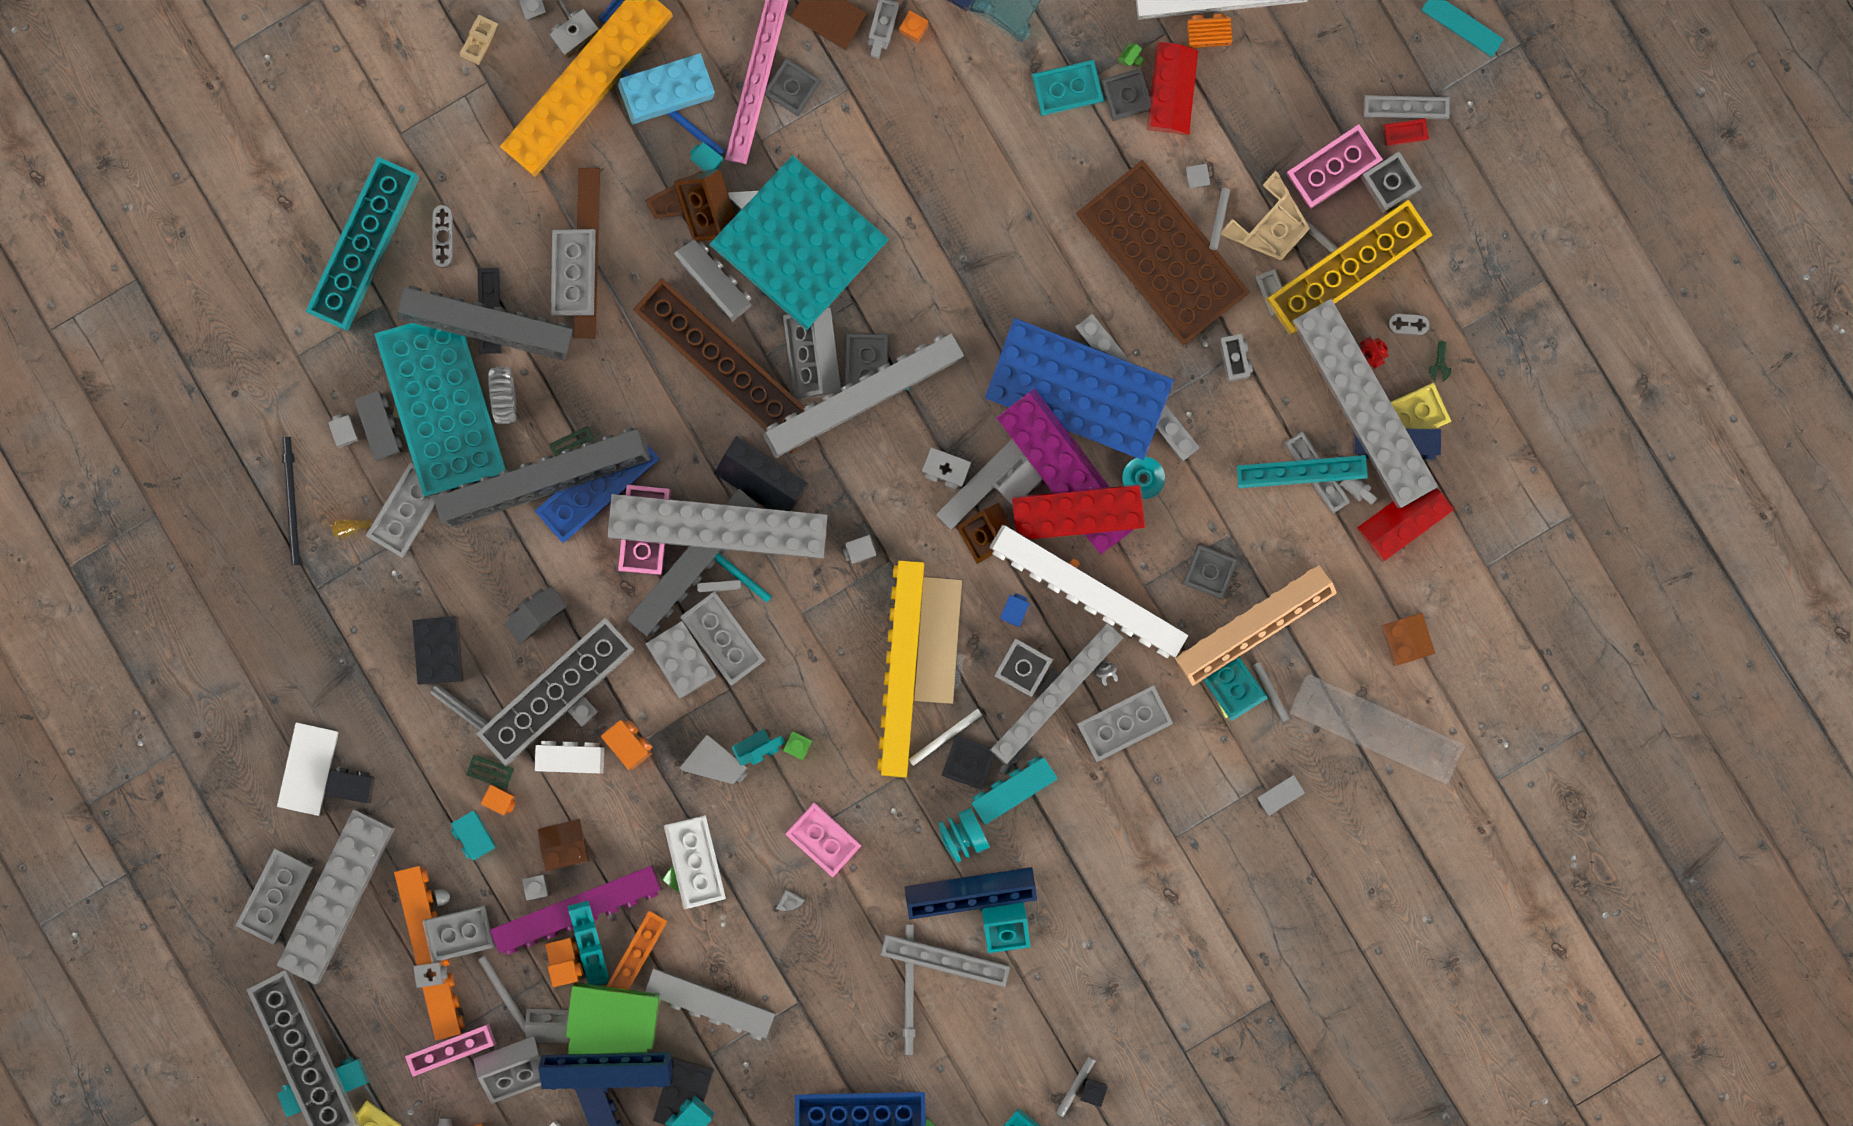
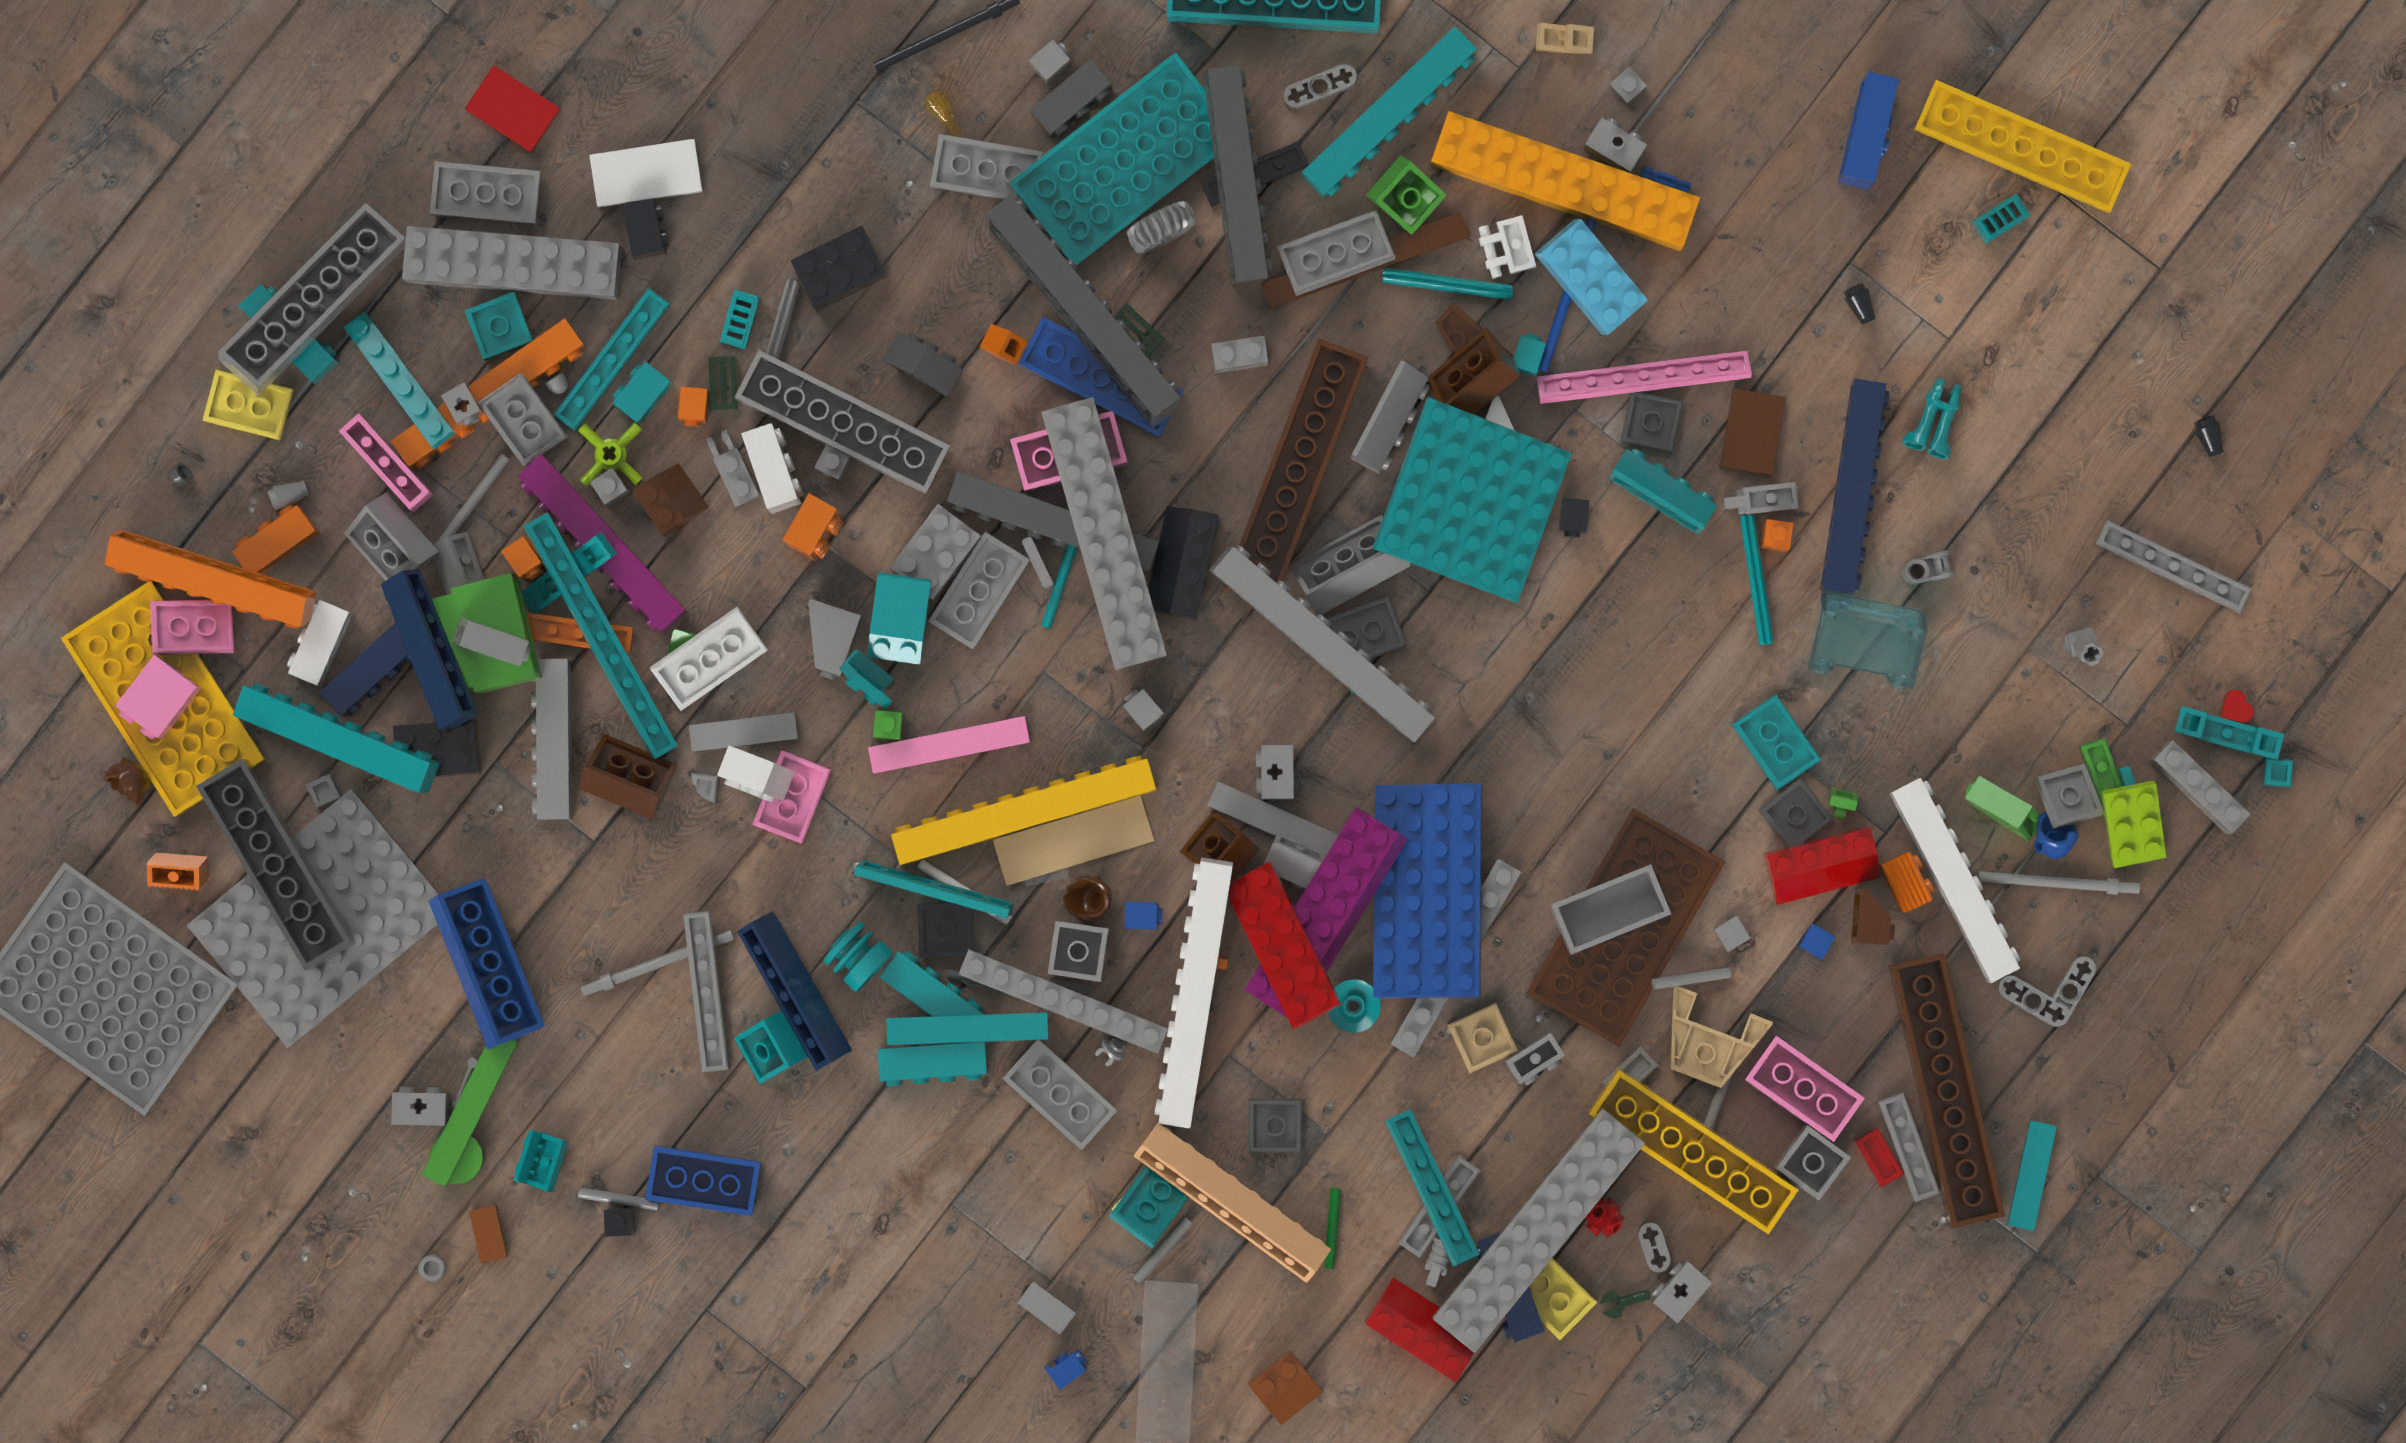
camera: 70 degrees right, 0 degrees up
(218, 851) = (512, 109): none -> red tile
(380, 925) = (499, 326): none -> teal plate
(392, 1016) = (399, 380): none -> teal plate
(428, 735) = (746, 297): none -> teal slope
(439, 849) = (612, 359): none -> teal tile
(483, 191) = (1390, 111): none -> teal brick
(513, 869) = (600, 455): none -> lime bar
(544, 548) = (1003, 344): none -> orange brick
(549, 203) = (1406, 194): none -> bright green slope
(560, 789) = (733, 471): none -> light grey hinge
(618, 1020) = (491, 641): none -> light grey slope
(619, 136) = (1514, 243): none -> white plate
(621, 374) = (1239, 354): none -> light grey brick
(629, 198) = (1447, 283): none -> teal axle
(645, 937) = (600, 635): none -> teal plate
(720, 705) = (899, 618): none -> teal slope
(759, 957) = (627, 776): none -> reddish brown slope
(760, 857) = (743, 732): none -> light grey tile
(796, 860) = (755, 775): none -> white brick
(830, 706) = (949, 745): none -> bright pink tile
(841, 172) = (1573, 517): none -> black brick
(848, 98) = (1662, 491): none -> teal slope
(934, 758) = (934, 888): none -> teal tile
(940, 55) = (1756, 579): none -> teal axle
(986, 645) = (1088, 899): none -> reddish brown hair
(1049, 773) = (967, 1028): none -> teal tile
(1063, 810) = (931, 1062): none -> teal brick
(1086, 1017) = (703, 1180): none -> blue brick
(1145, 258) = (1610, 909): none -> light grey piece
(1204, 391) = (1482, 1038): none -> tan tile
(1227, 69) = (1870, 921): none -> reddish brown slope
(1227, 115) = (1816, 941): none -> blue tile
(1301, 557) = (1332, 1227): none -> green bar
(1332, 797) = (1066, 1368): none -> blue brick
(1375, 62) = (1946, 1090): none -> reddish brown brick
(1459, 323) = (1694, 1287): none -> light grey brick

